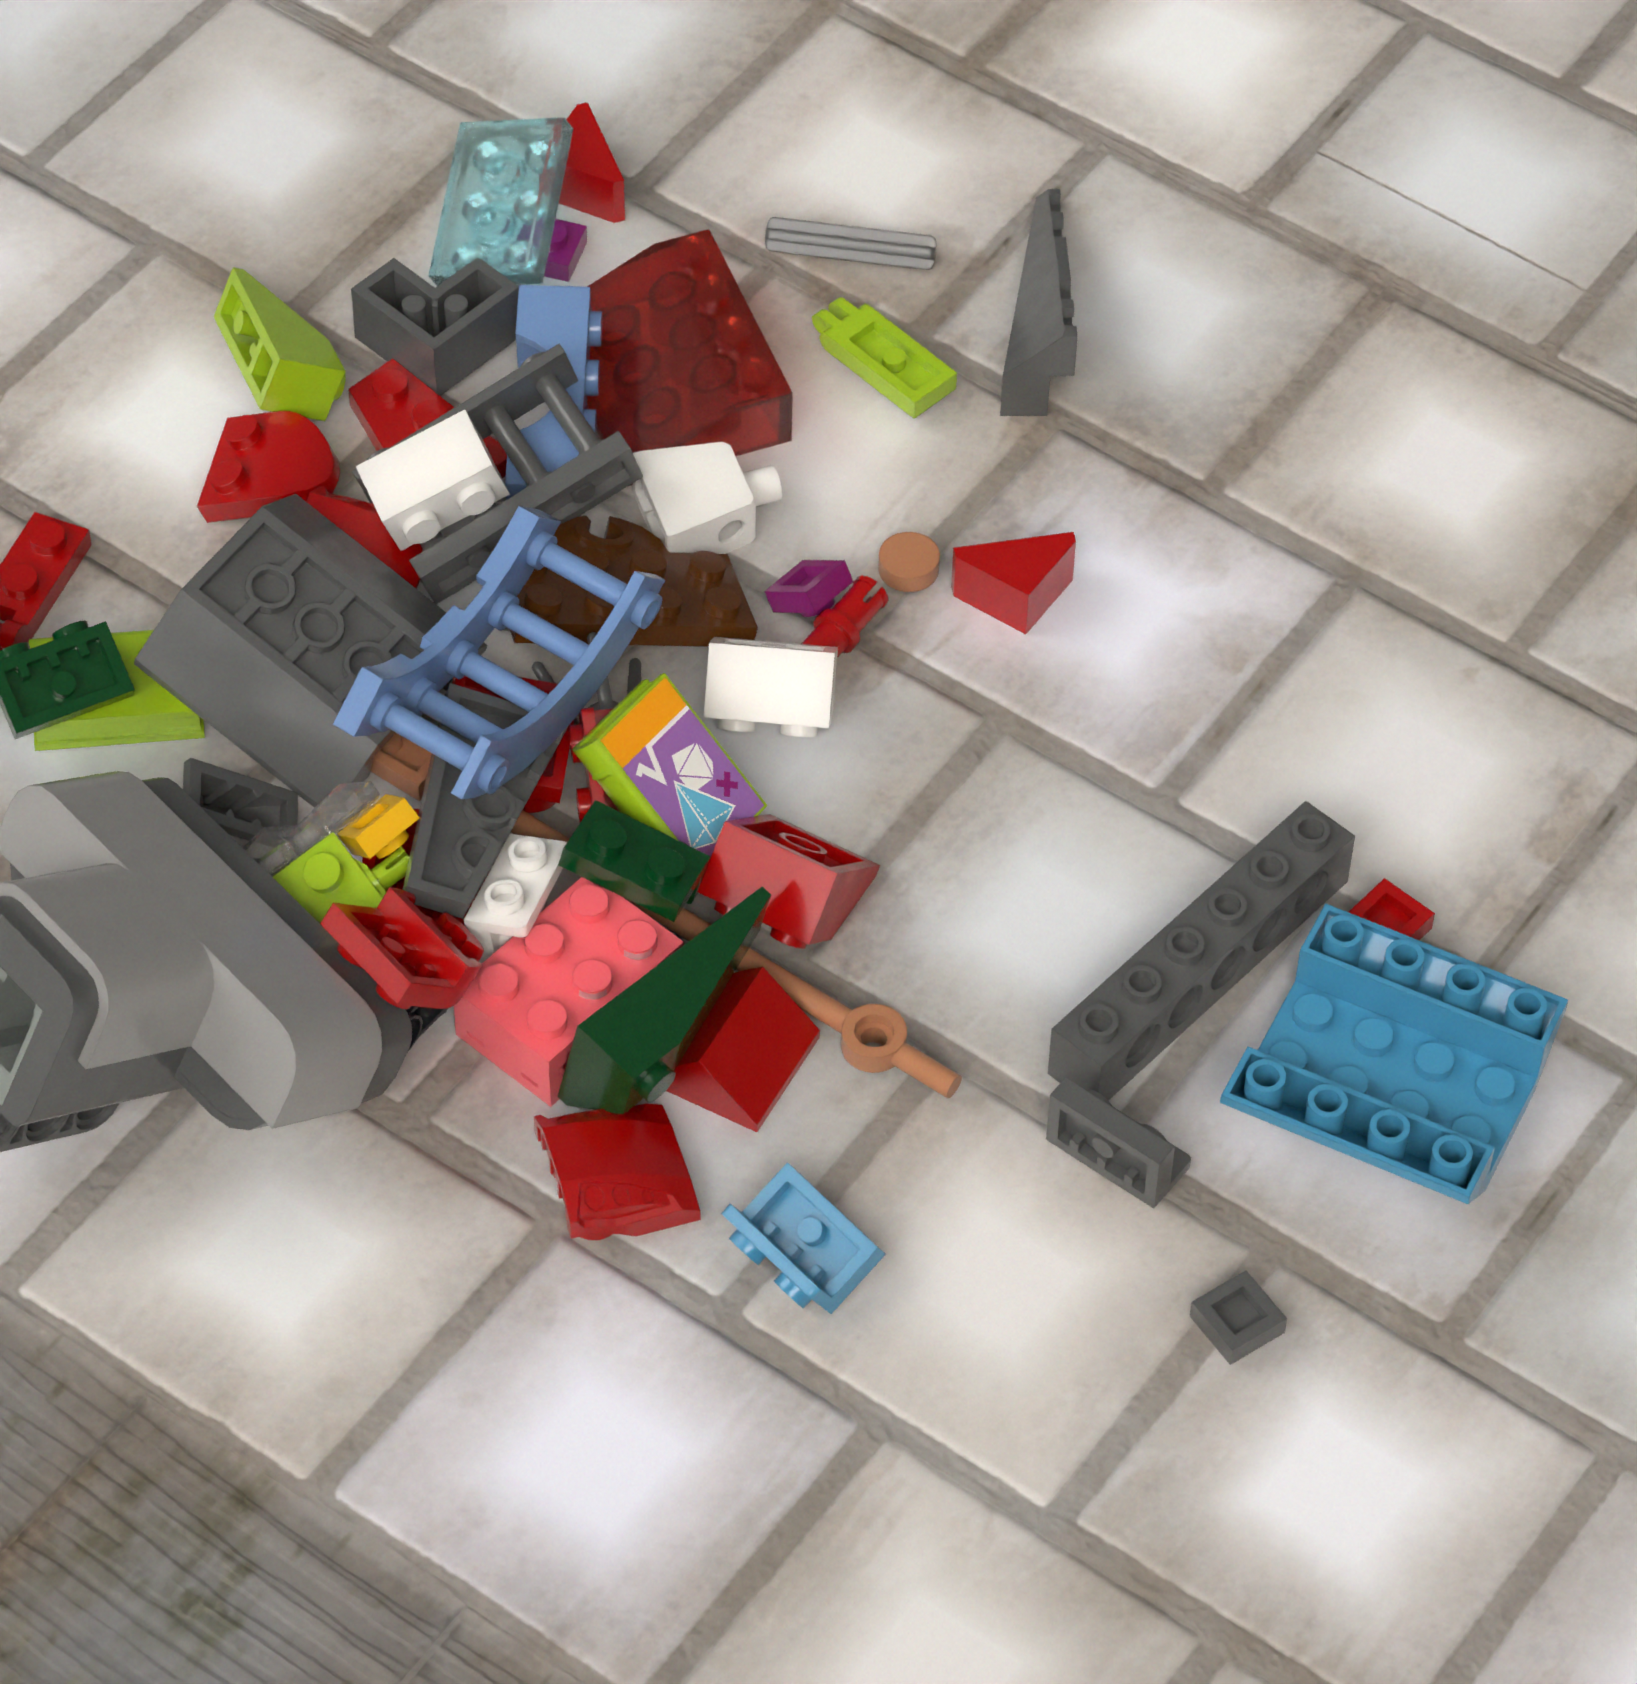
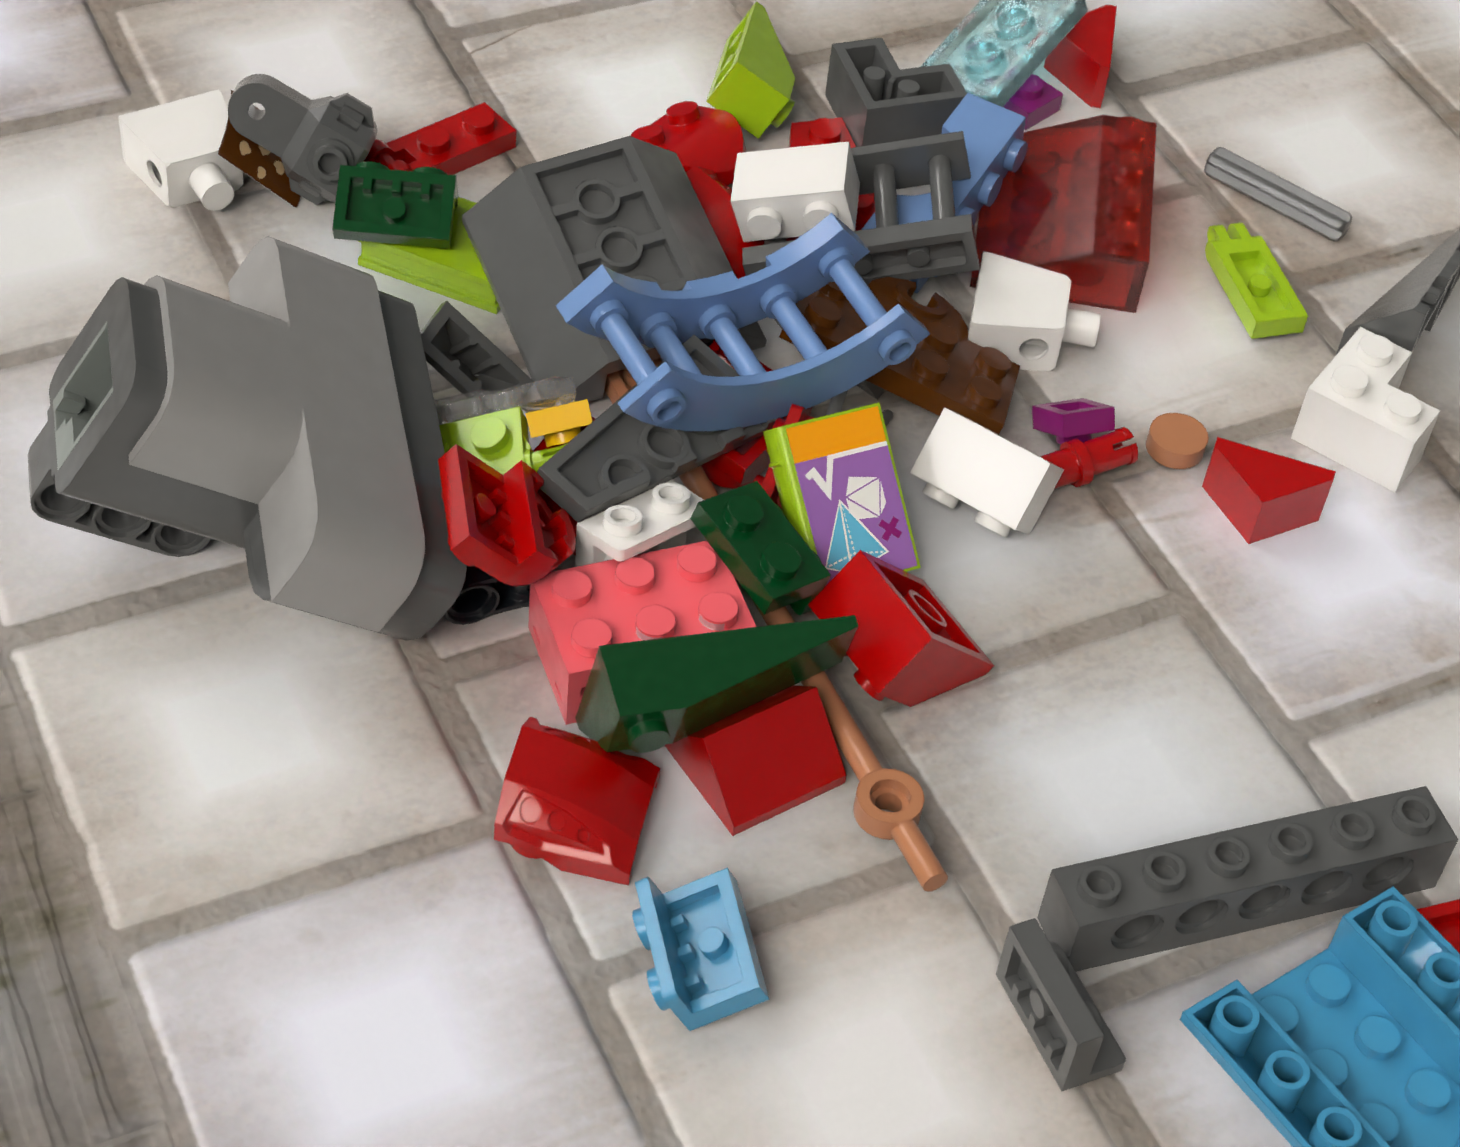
camera: 25 degrees right, 5 degrees down
(1059, 459) = (1362, 416): none -> white brick

